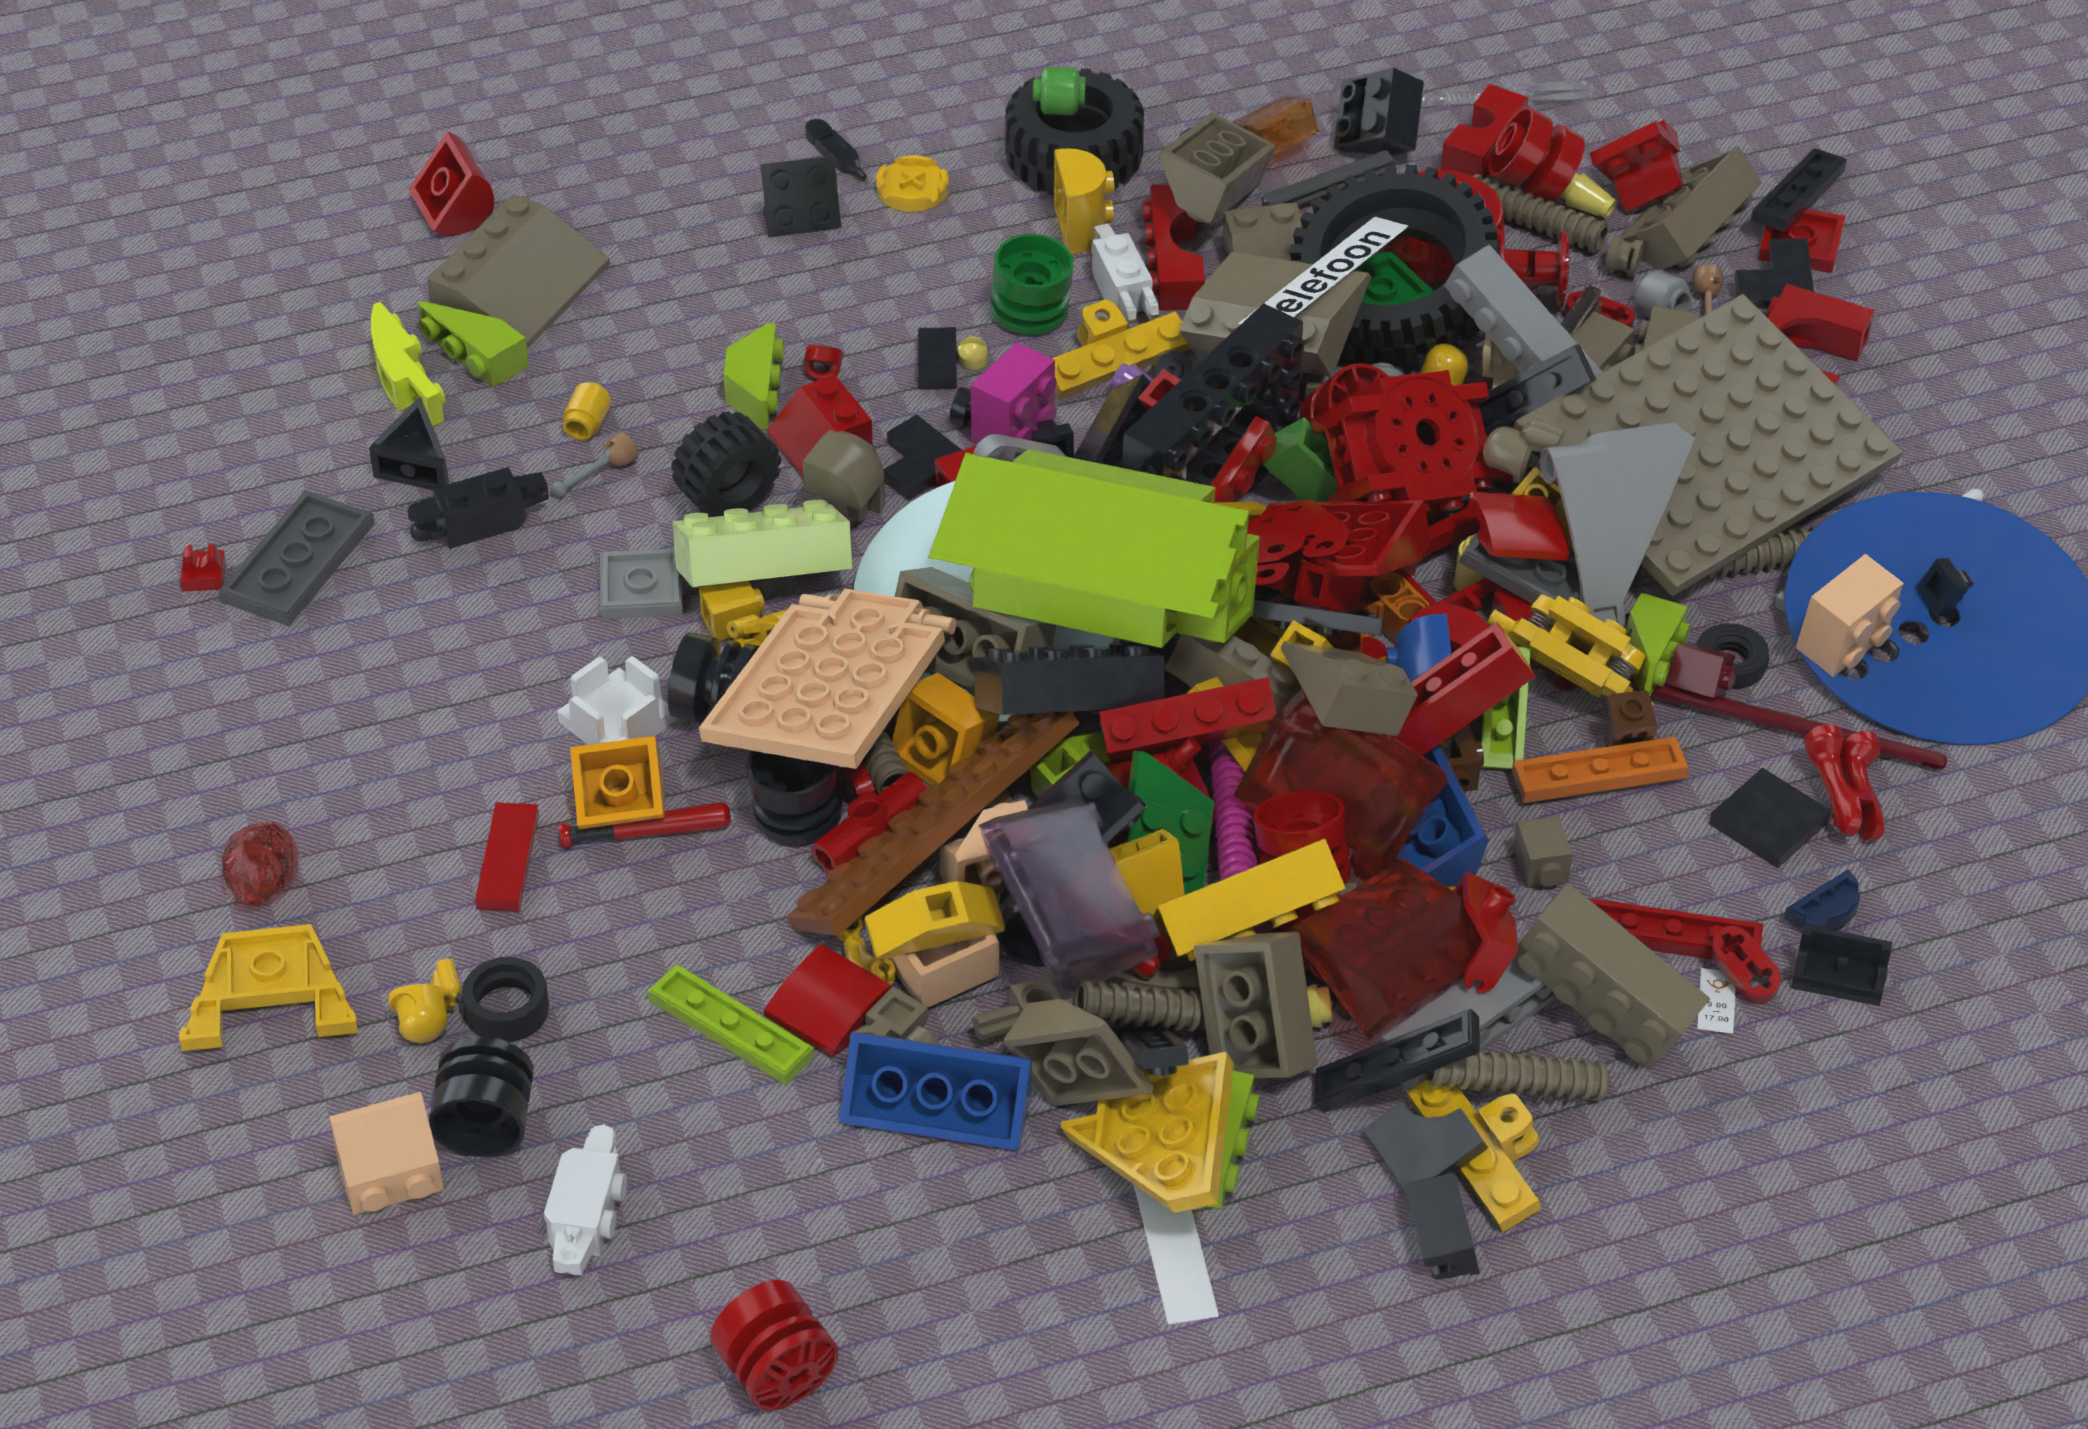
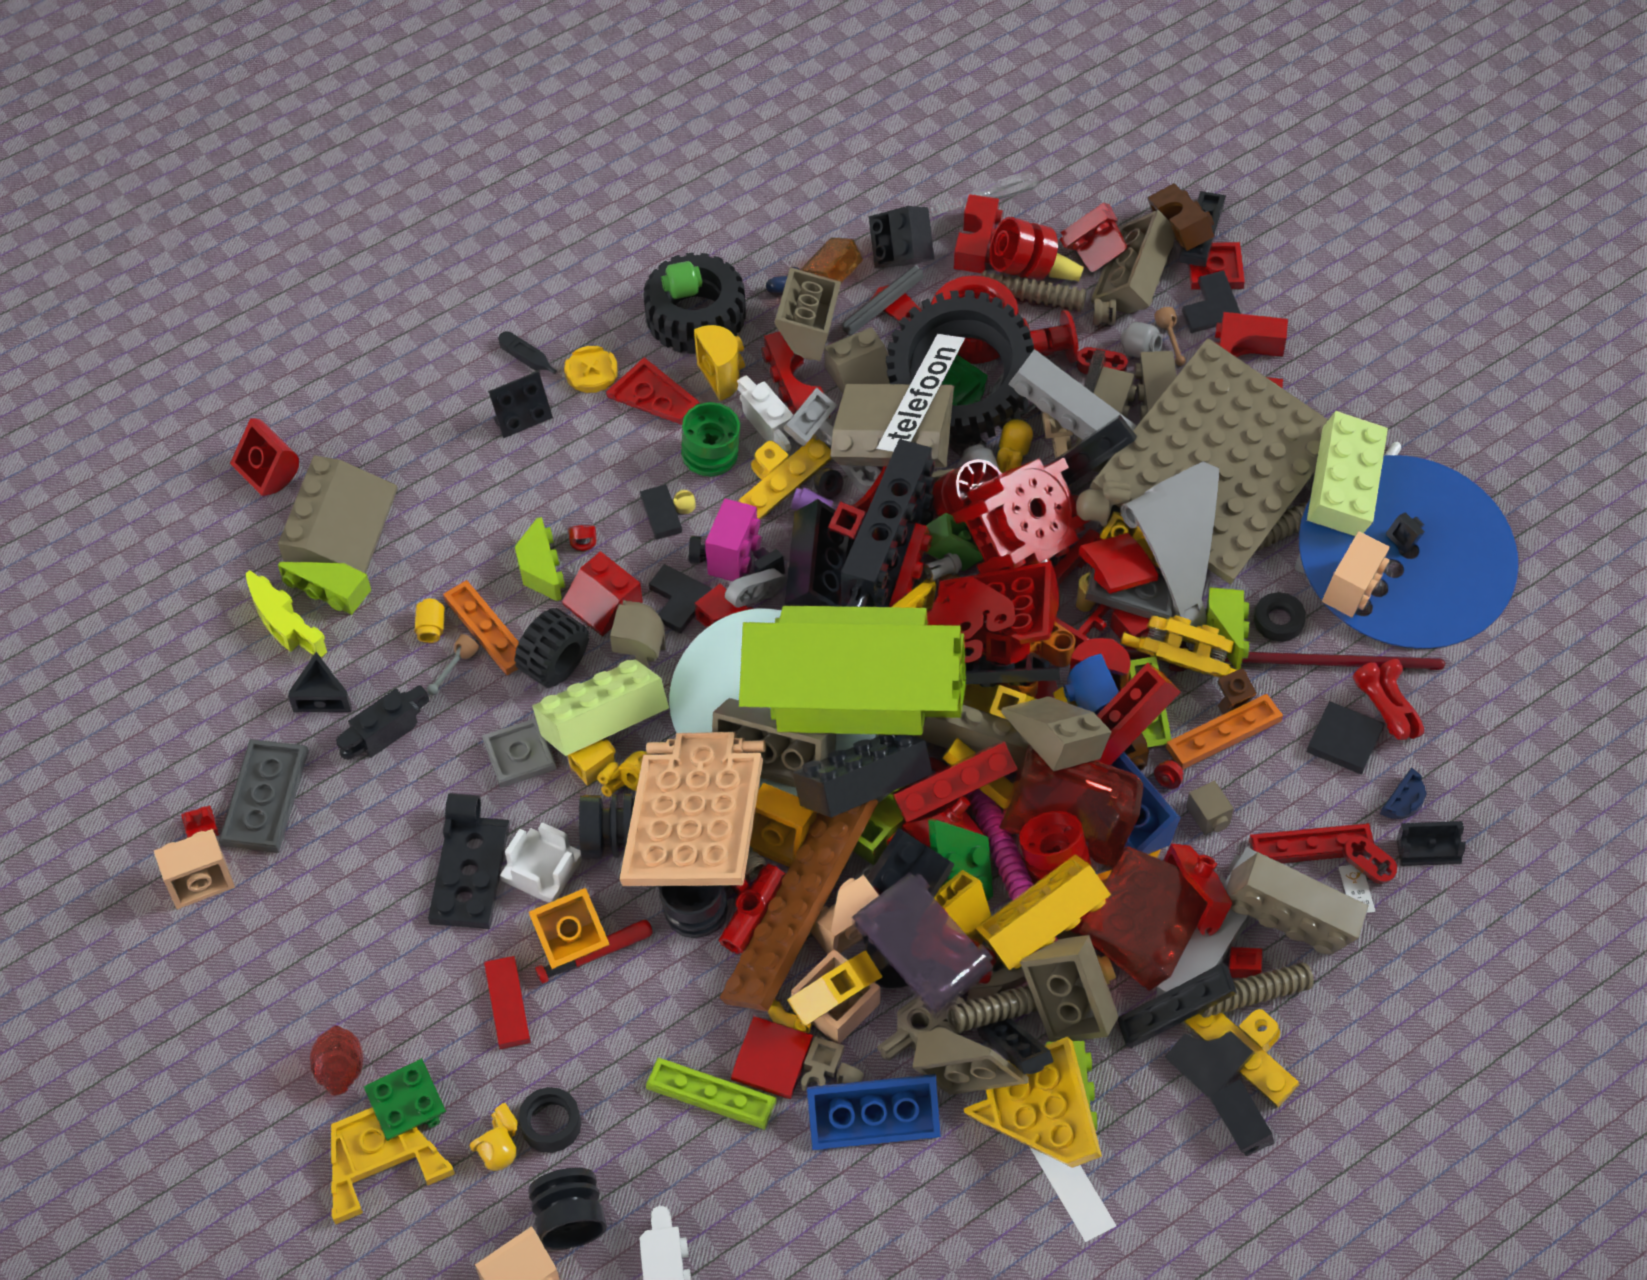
camera: 15 degrees left, 10 degrees up
(170, 608) = (194, 868): none -> light nougat brick
(328, 929) = (405, 1100): none -> green hinge
(528, 646) = (460, 827): none -> black hinge
(651, 427) = (483, 625): none -> orange plate
(974, 219) = (652, 392): none -> red wing
(1171, 284) = (812, 419): none -> light grey hinge
(1281, 489) = (948, 565): none -> light grey pin
(1501, 801) = (1169, 774): none -> red plate
(1522, 1040) = (1245, 962): none -> red plate
(1702, 670) = (1268, 637): brick -> none
(1773, 164) = (1187, 219): none -> reddish brown arch
(1883, 493) = (1347, 474): none -> yellowish green brick

